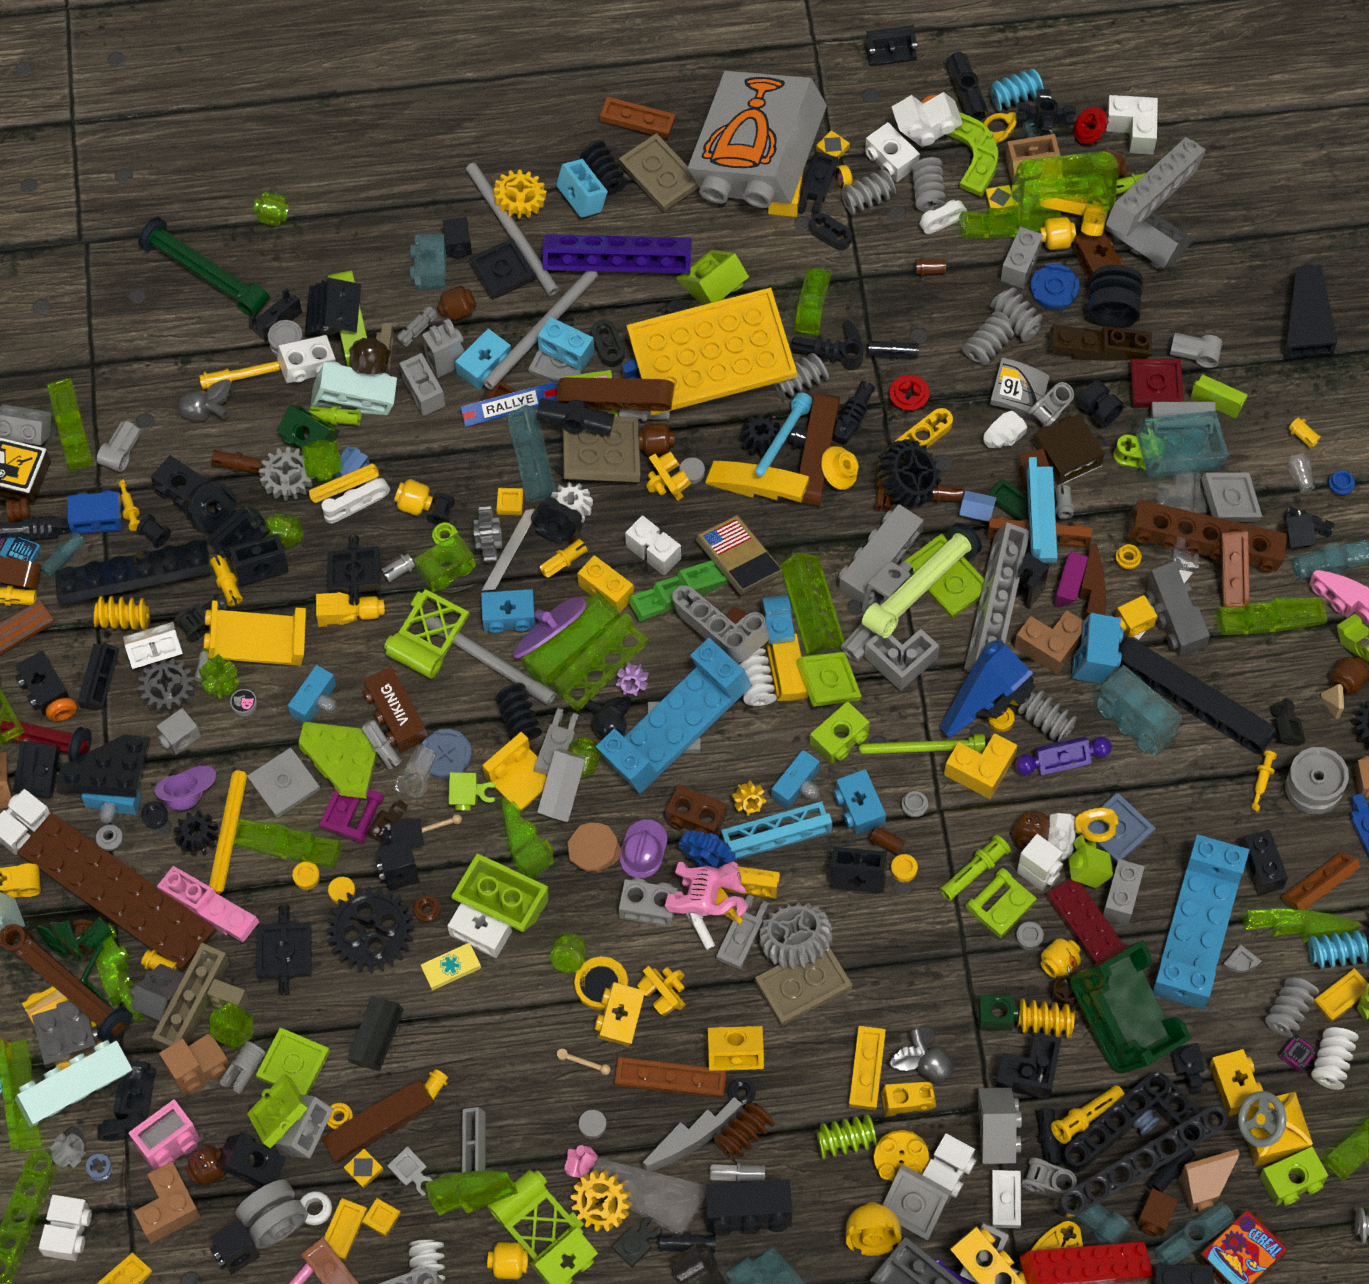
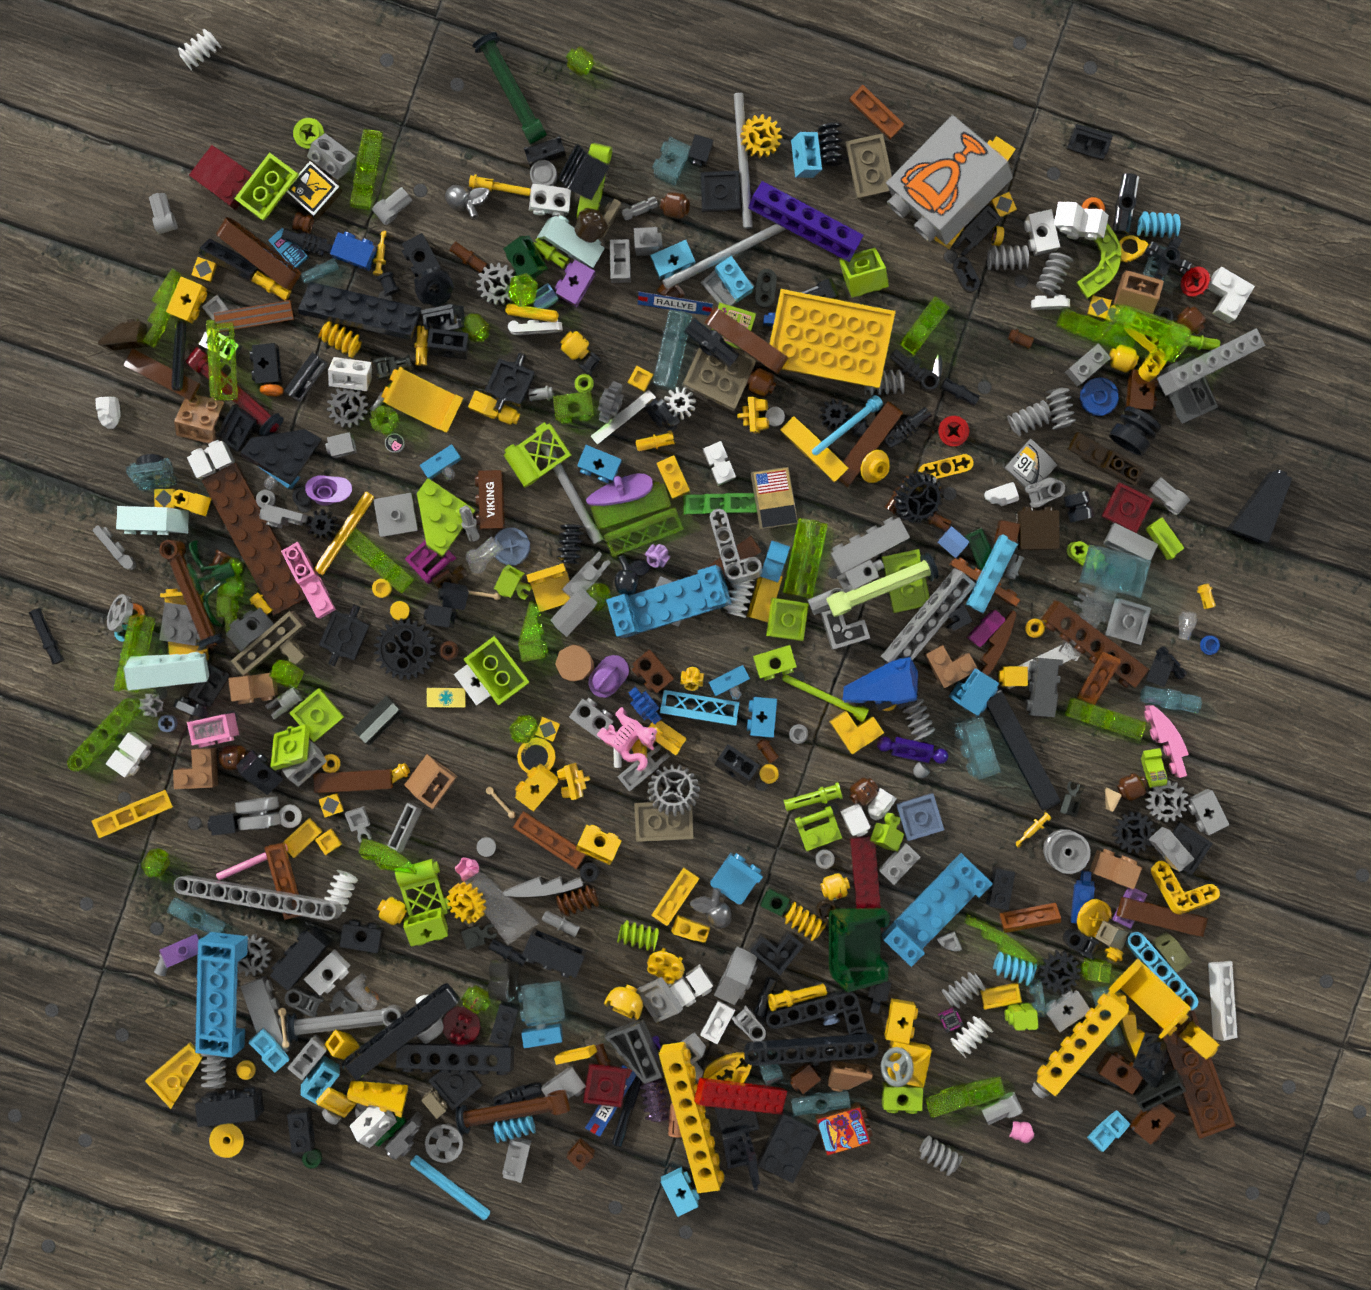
camera: 25 degrees right, 25 degrees up
(137, 839) = (278, 517): none -> light grey plate
(386, 422) = (575, 293): none -> medium lavender brick
(481, 1072) = (430, 781): none -> medium nougat slope
(599, 943) = (548, 729): none -> tile
(932, 1005) = (736, 878): none -> dark azure bracket
(1083, 821) = (899, 804): yellow piece -> none
(1087, 775) = (920, 770): none -> light grey hinge

